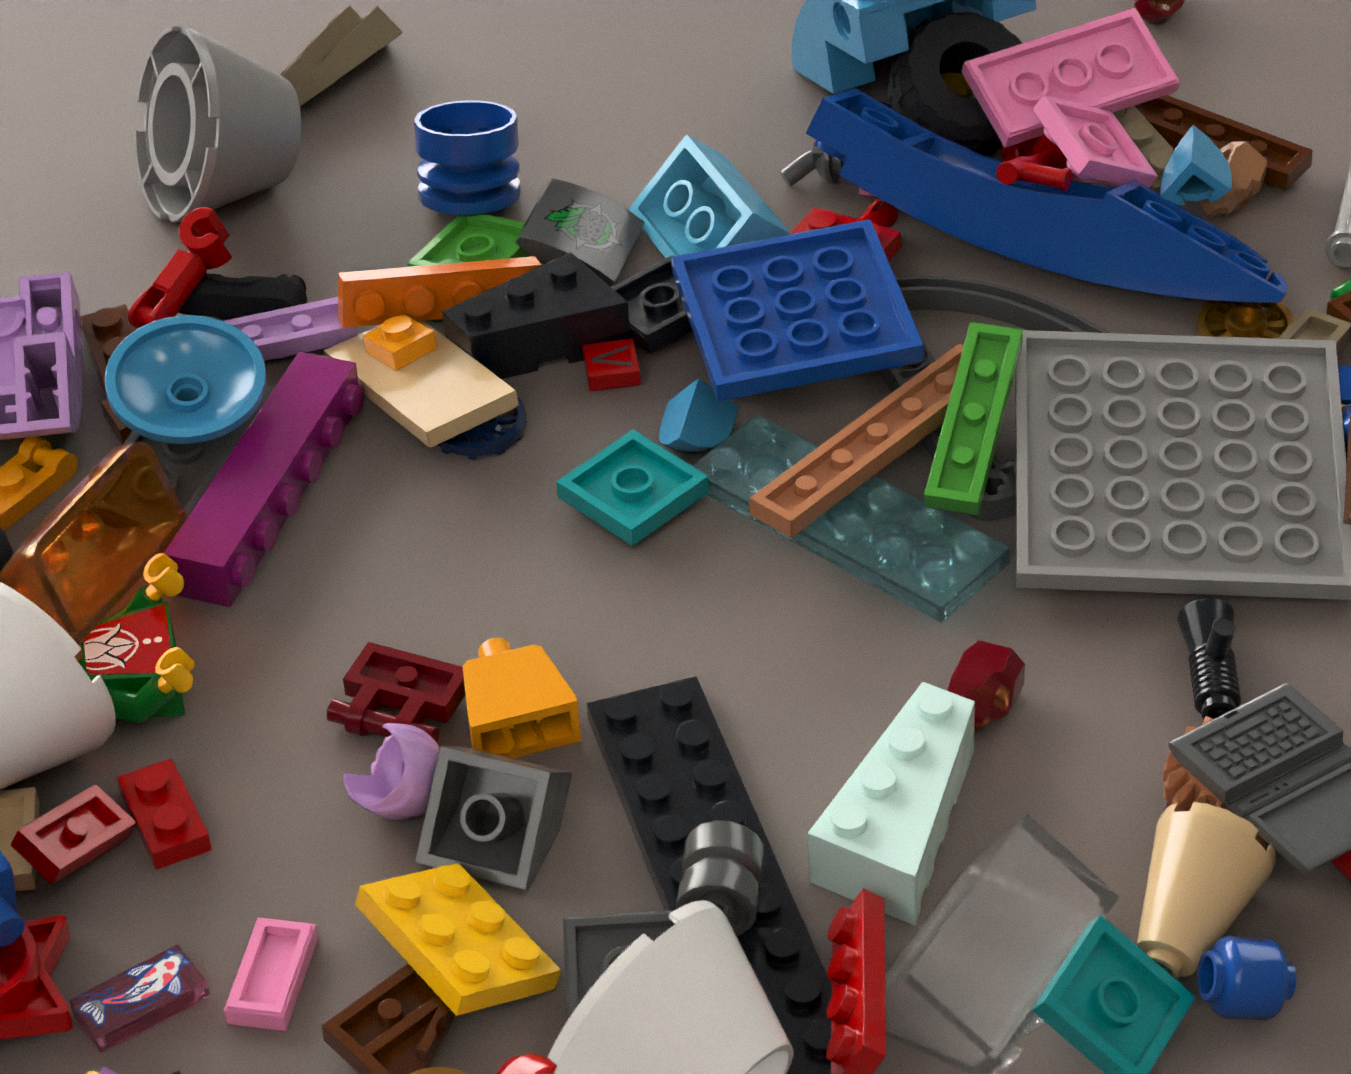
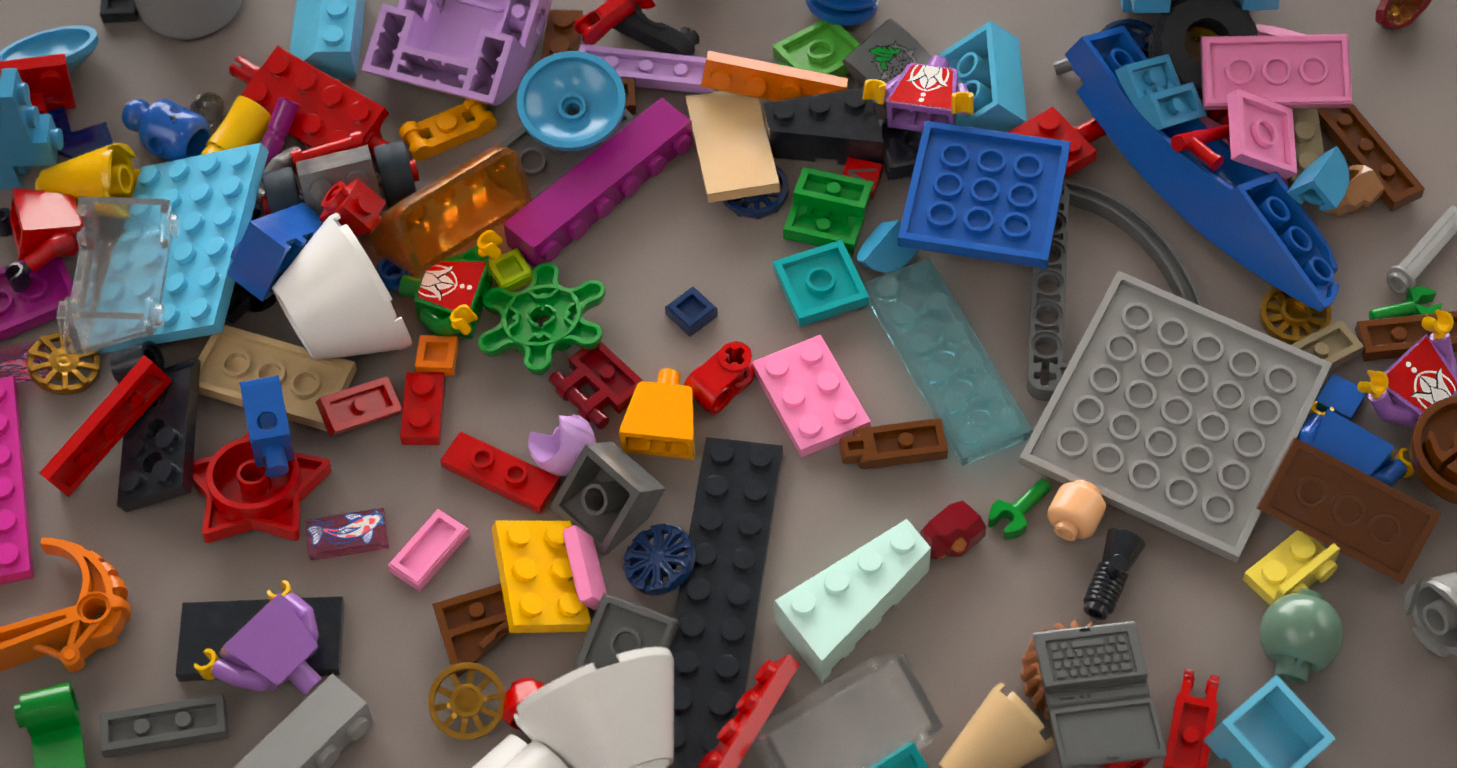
camera: 25 degrees right, 15 degrees up
(149, 740) = (437, 354): none -> orange plate
(199, 618) = (510, 271): none -> lime tile
(263, 623) = (542, 298): none -> green plate
(320, 846) = (500, 472): none -> red plate
(399, 341) = (730, 112): light orange plate -> none
(476, 578) = (691, 311): none -> dark blue tile
(515, 904) = (584, 566): none -> bright pink tile
(569, 624) = (722, 378): none -> red piece
(589, 406) = (827, 209): none -> green slope
(611, 860) = (659, 559): none -> dark blue wheel
(646, 236) = (922, 95): none -> torso
(696, 614) = (810, 395): none -> bright pink plate
(723, 867) = (705, 609): dark grey wheel -> none
(844, 623) = (895, 444): none -> reddish brown hinge
(858, 450) = (985, 315): nougat plate -> none
(939, 136) = (1158, 93): none -> dark azure slope
(973, 418) = (1054, 327): bright green plate -> none
(1046, 641) = (1017, 510): none -> green bar
(1125, 604) = (1076, 510): none -> light nougat head

